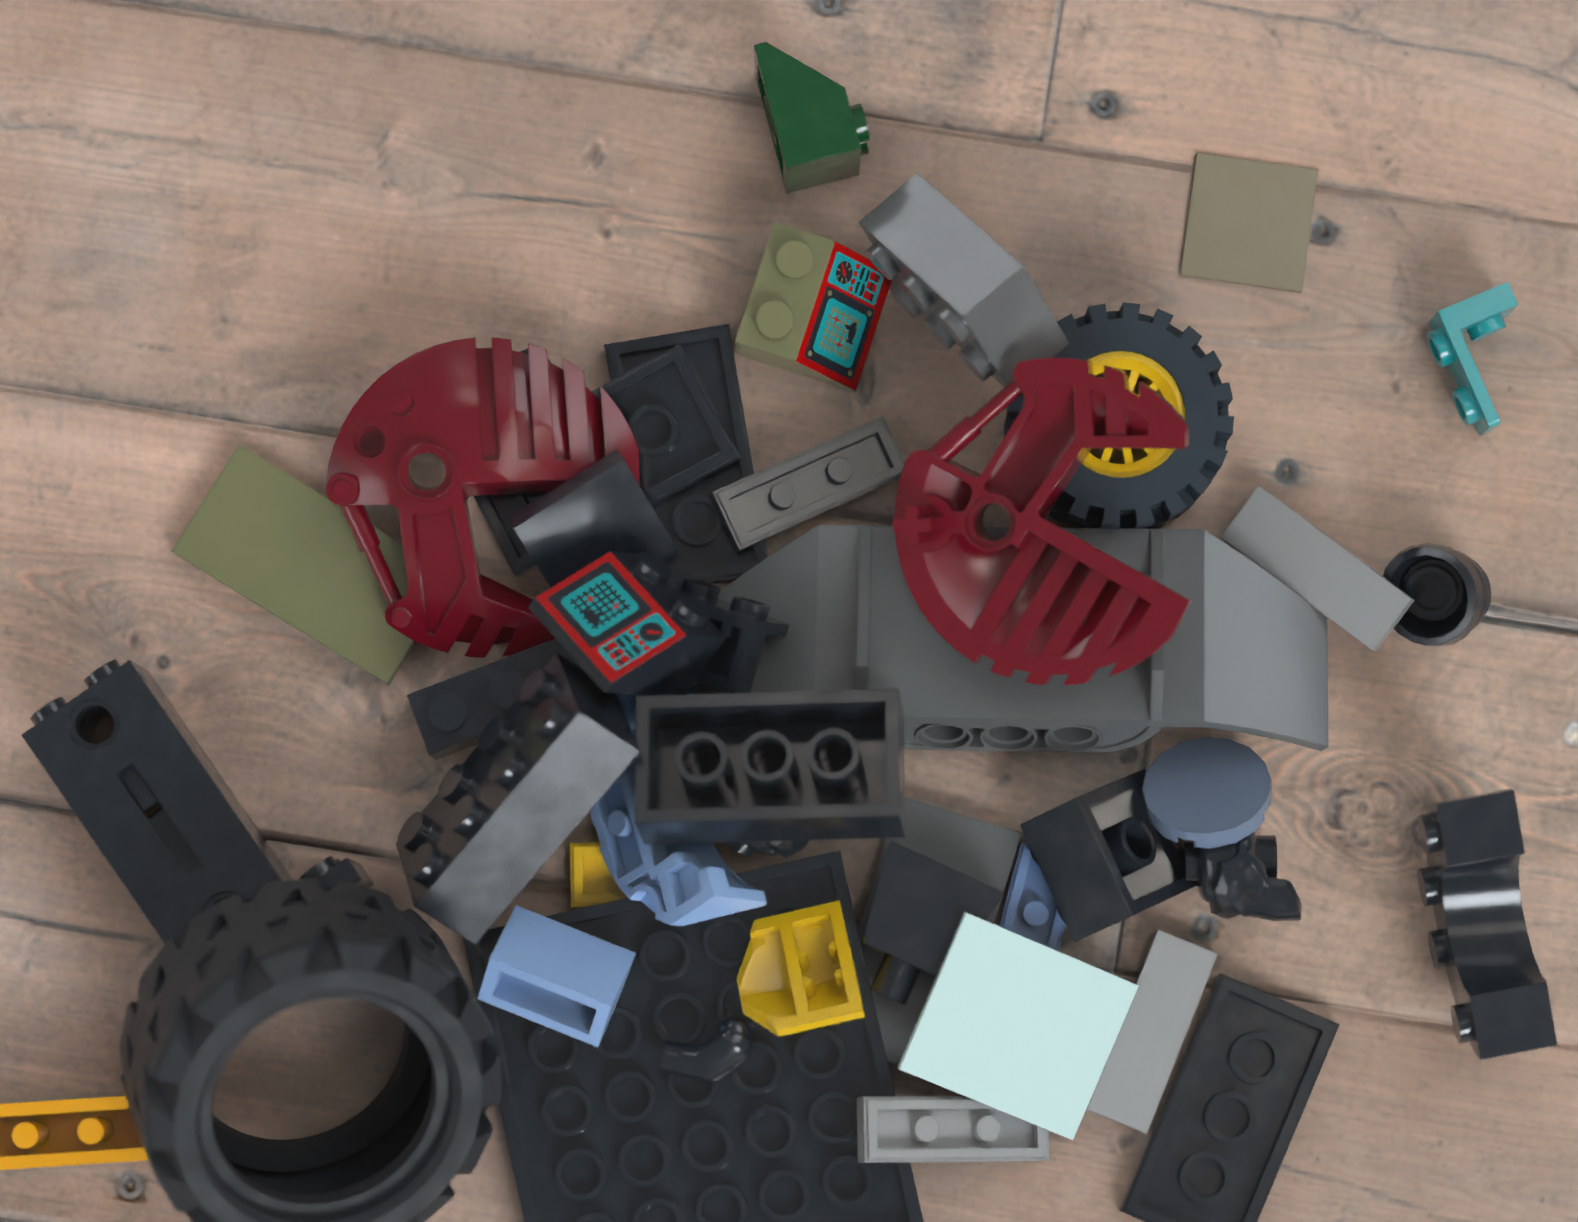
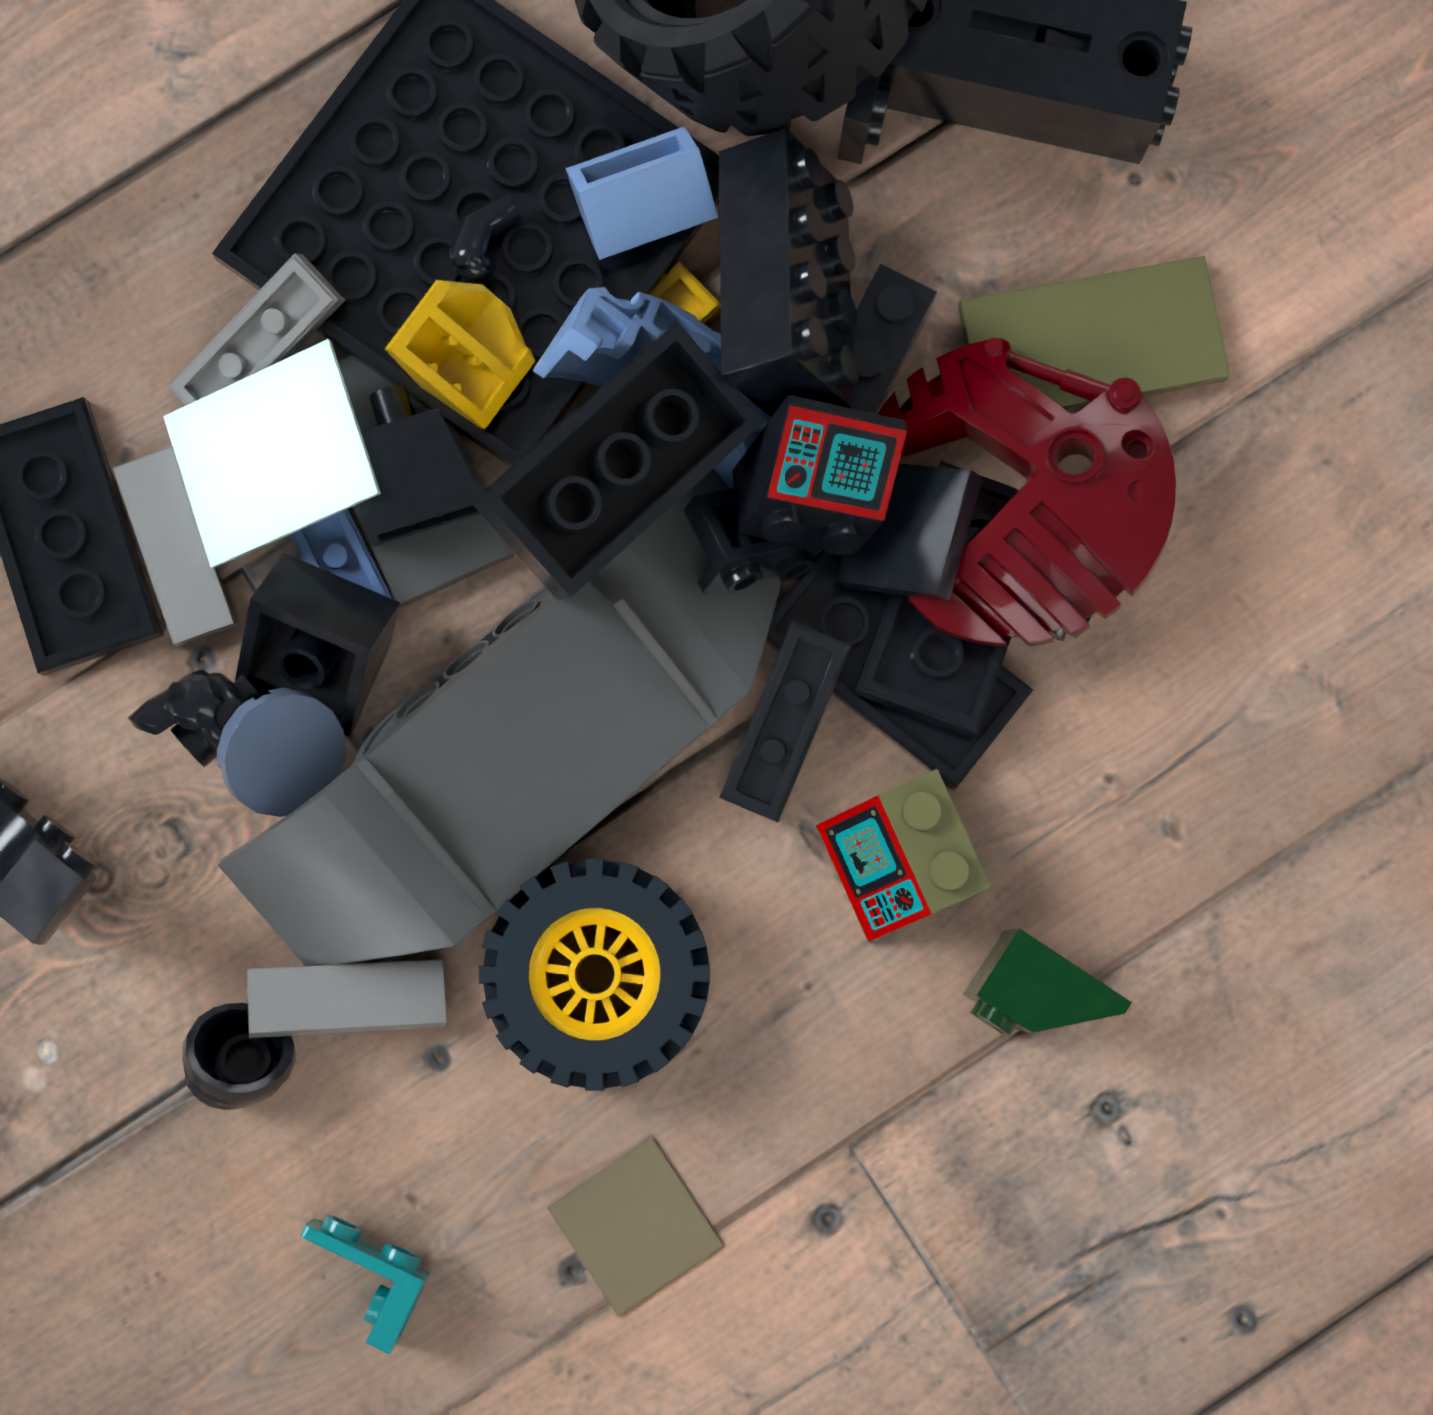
camera: 135 degrees right, 0 degrees up
(960, 282) = (804, 963): dark grey brick -> none
(1039, 592) = (536, 774): dark red piece -> none

